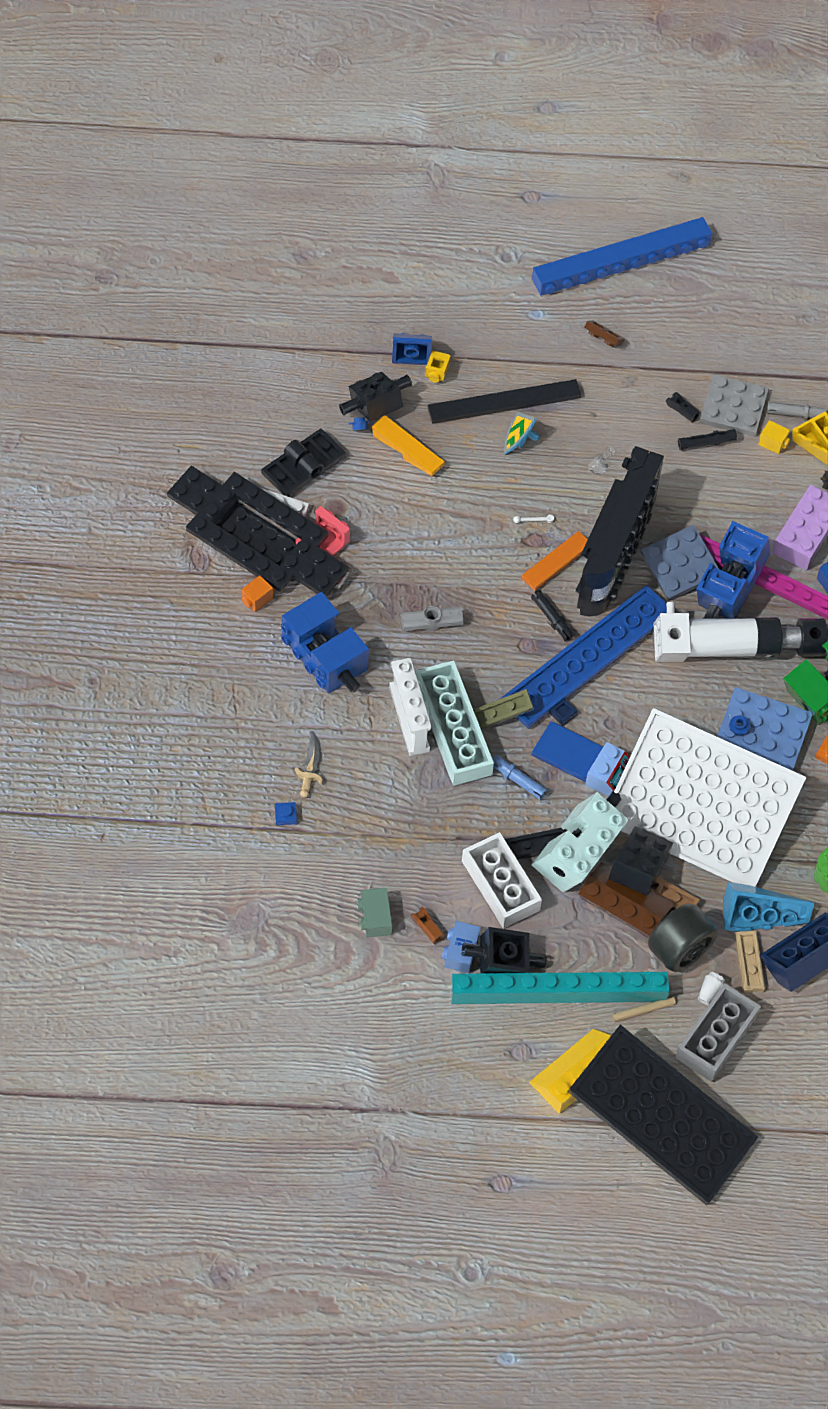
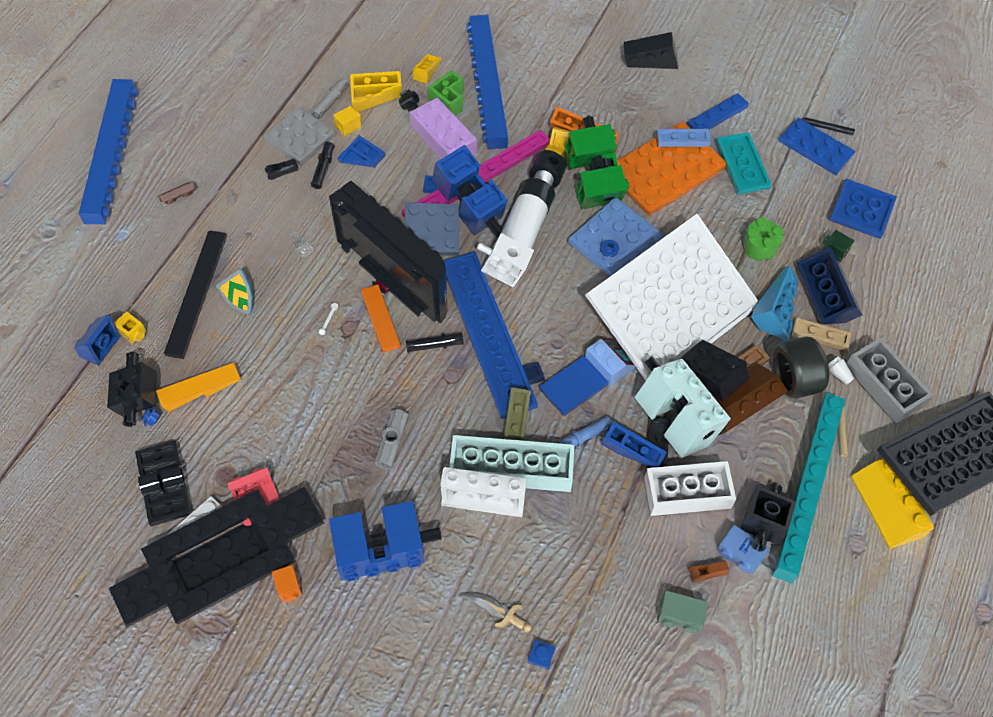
camera: 65 degrees left, 0 degrees up
(521, 816) = (633, 446): none -> blue slope
(741, 467) = (362, 153): none -> blue wing

